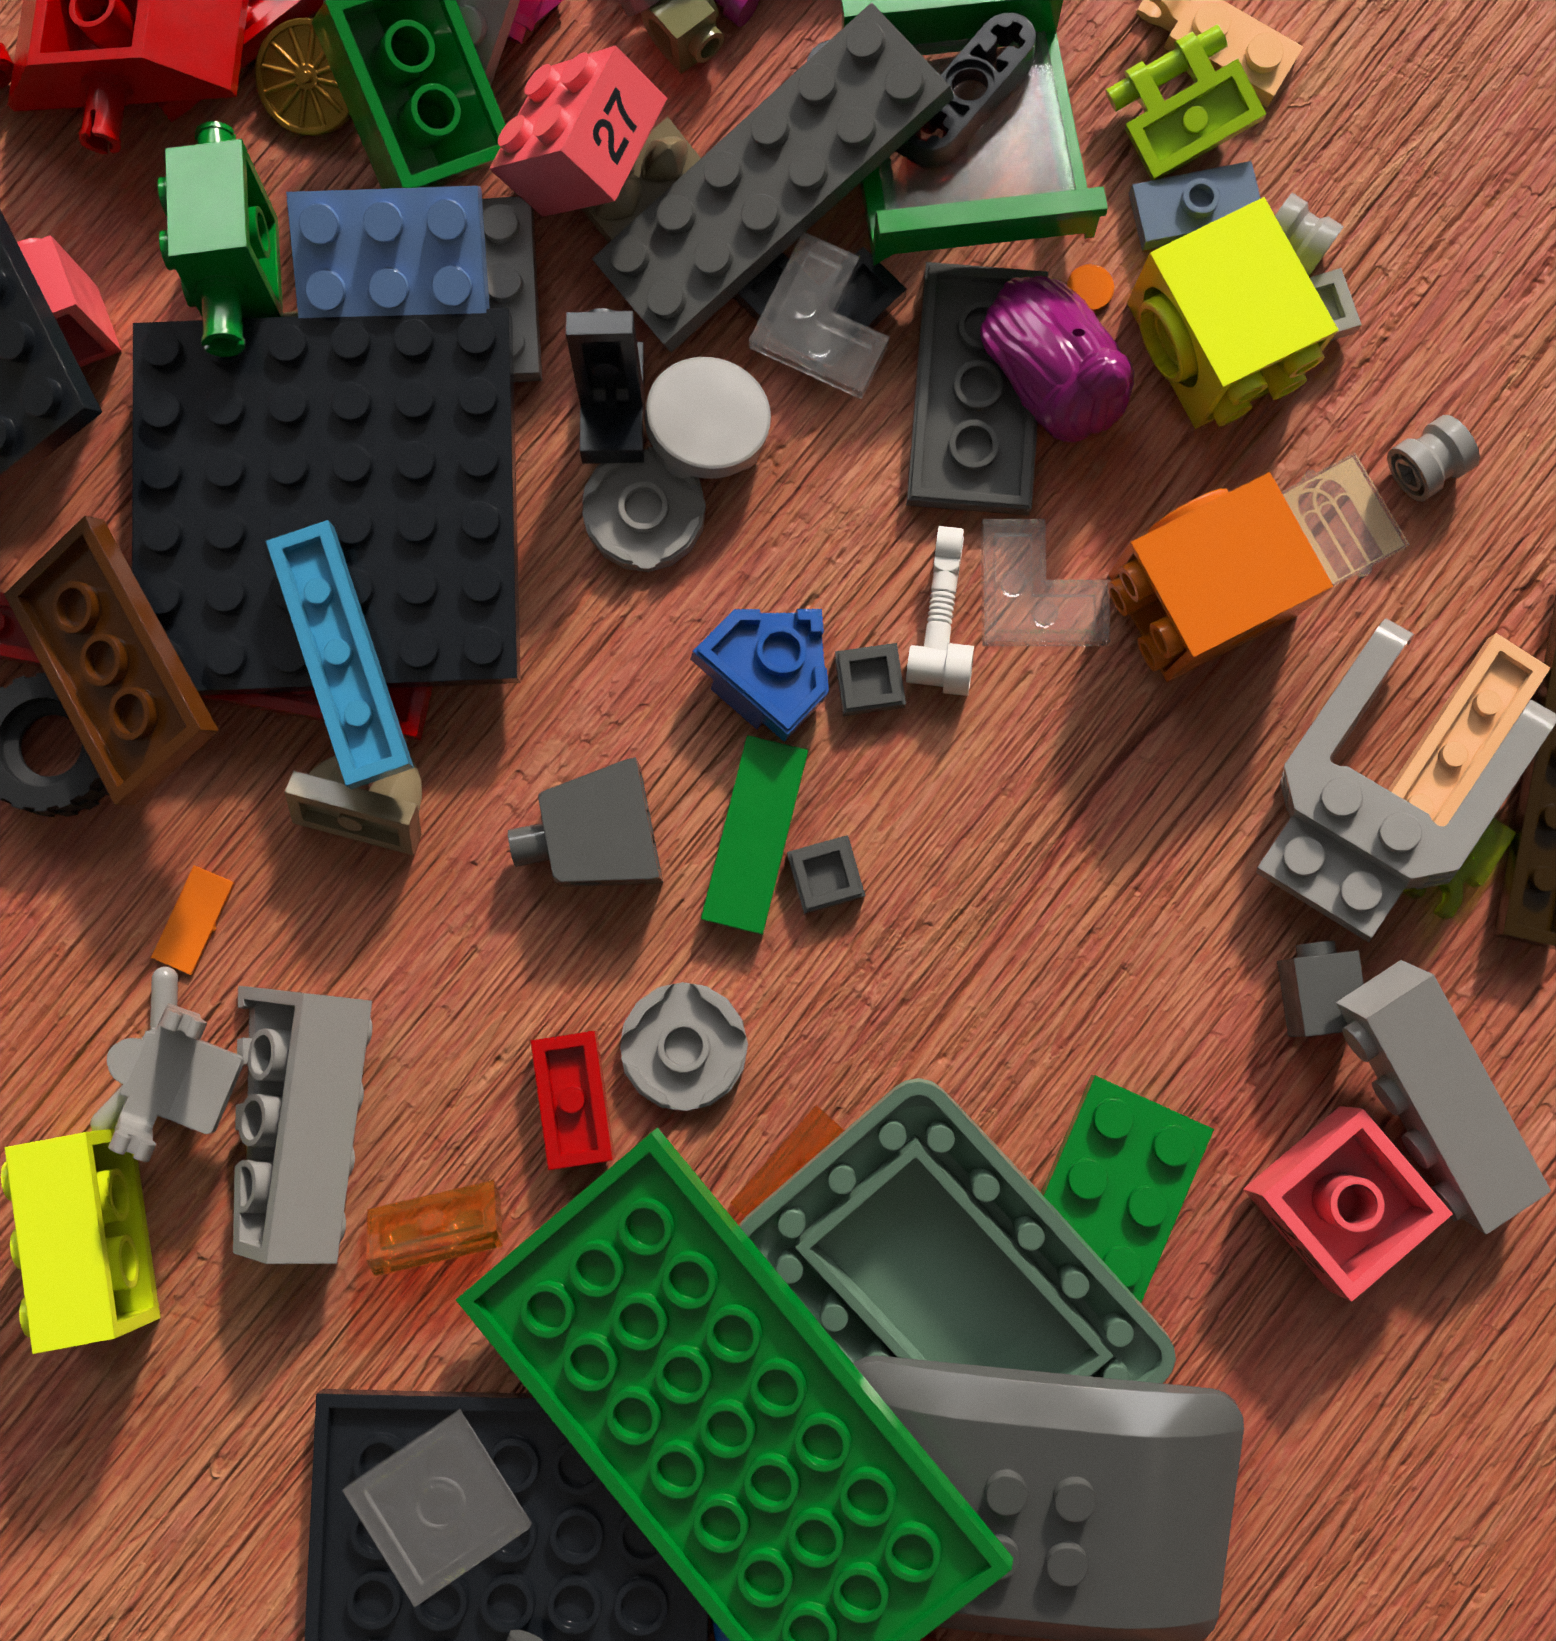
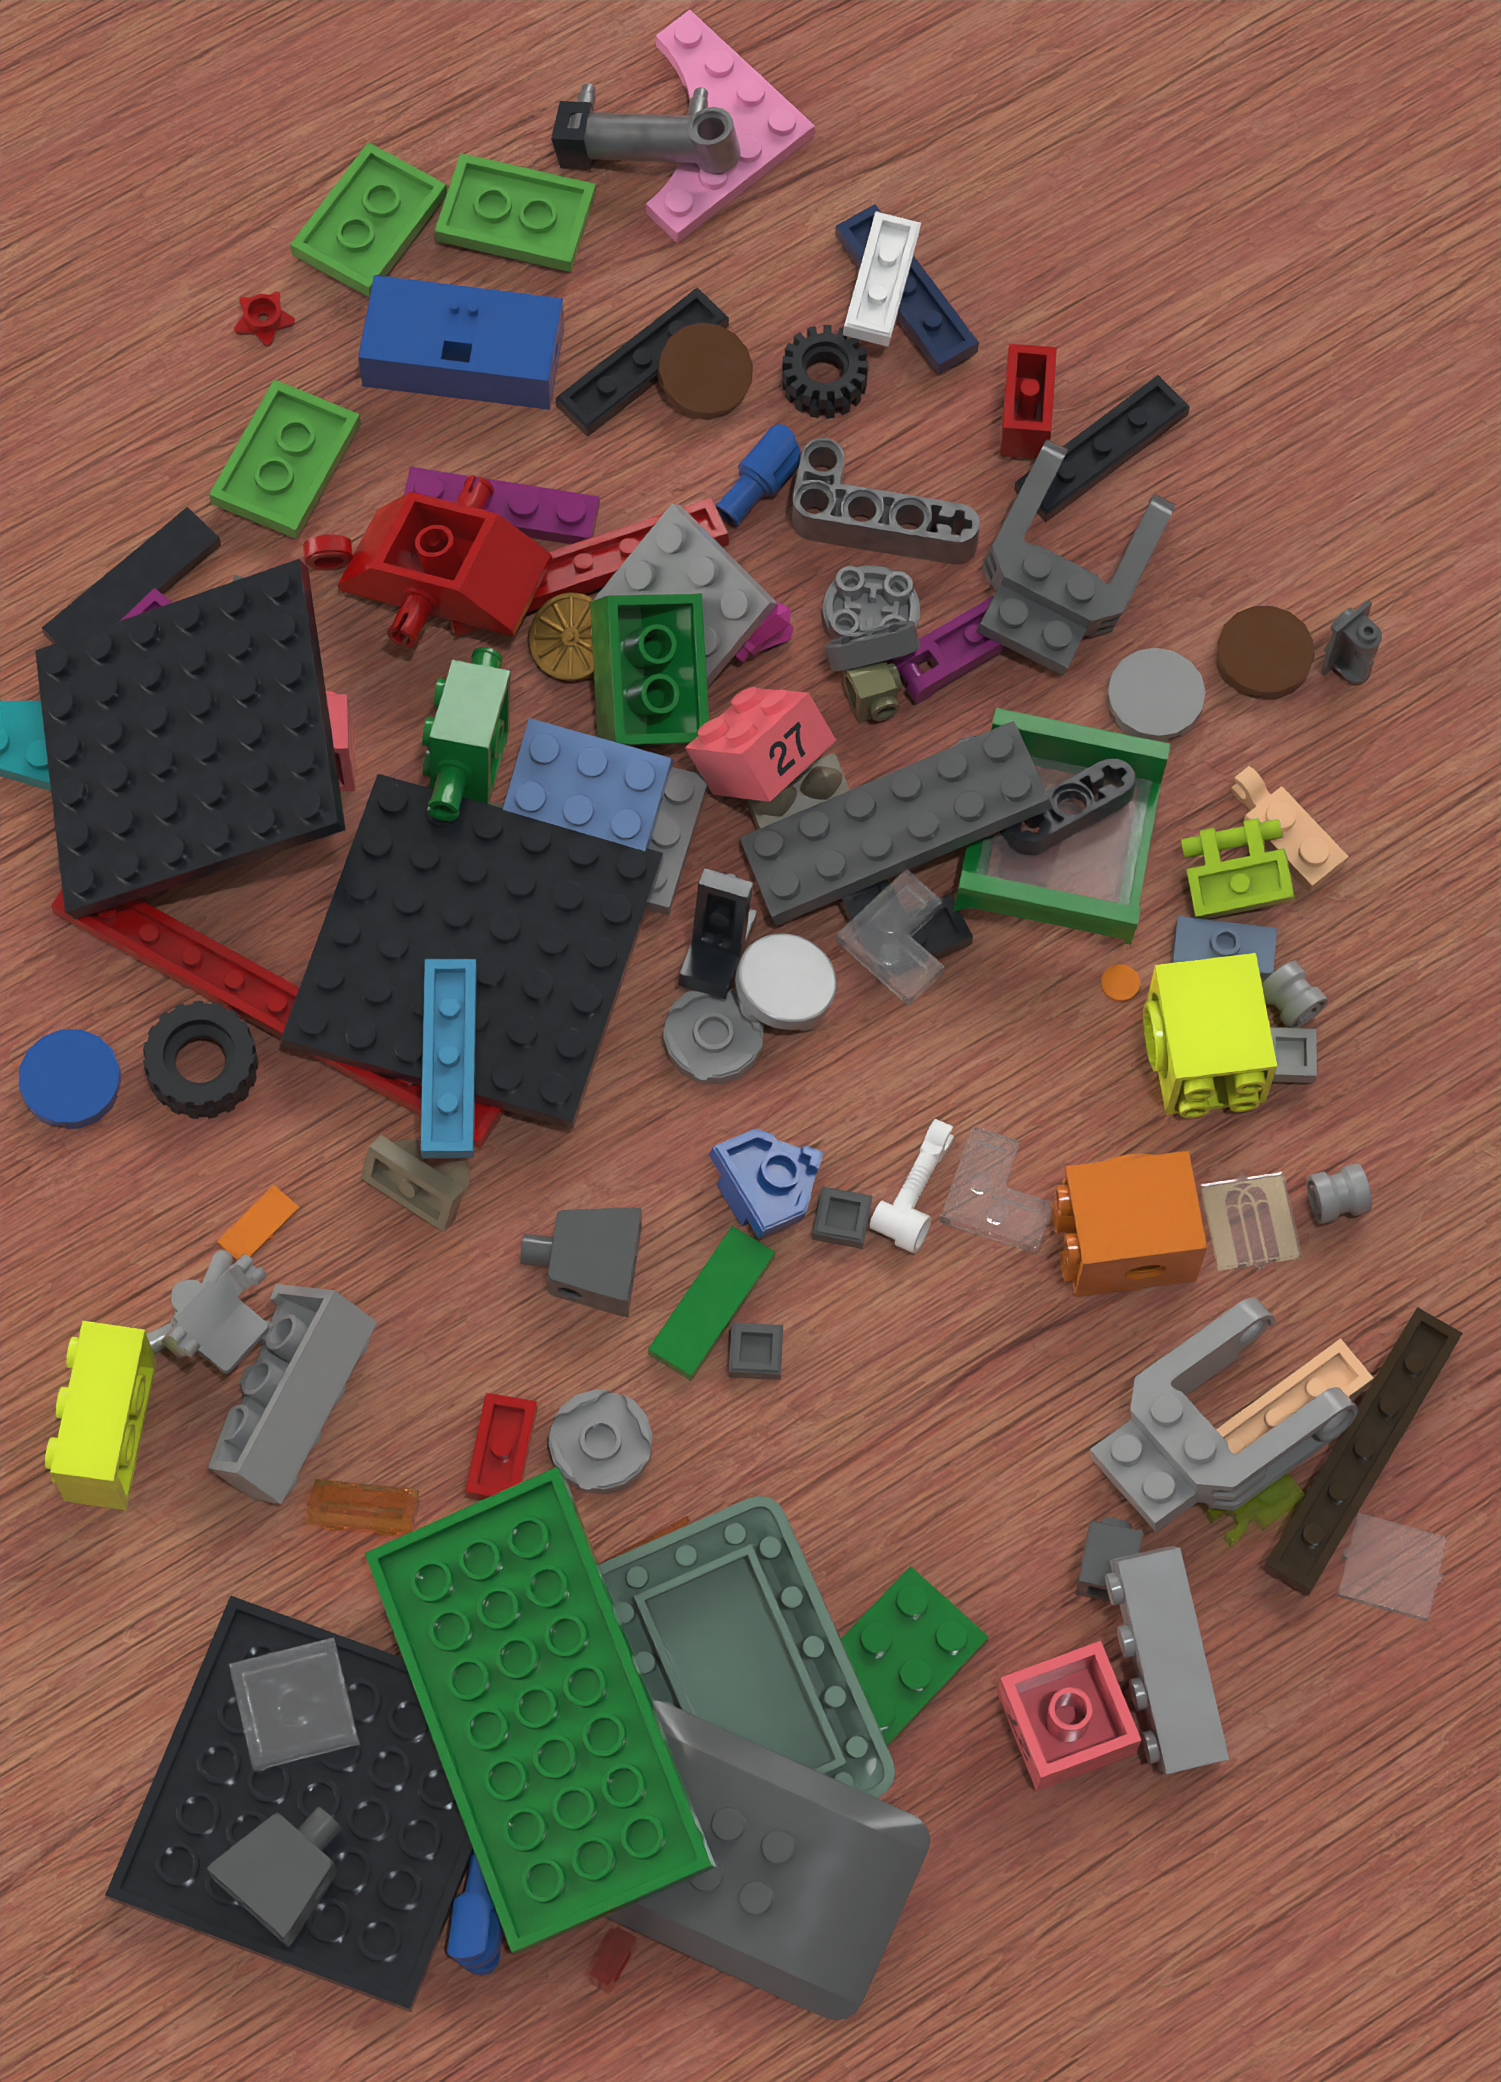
camera: 15 degrees right, 15 degrees down
(110, 662) = (277, 1009): reddish brown plate -> none
(969, 426) = (1003, 1029): dark grey tile -> none
(1057, 357) = (1070, 1023): magenta hair -> none

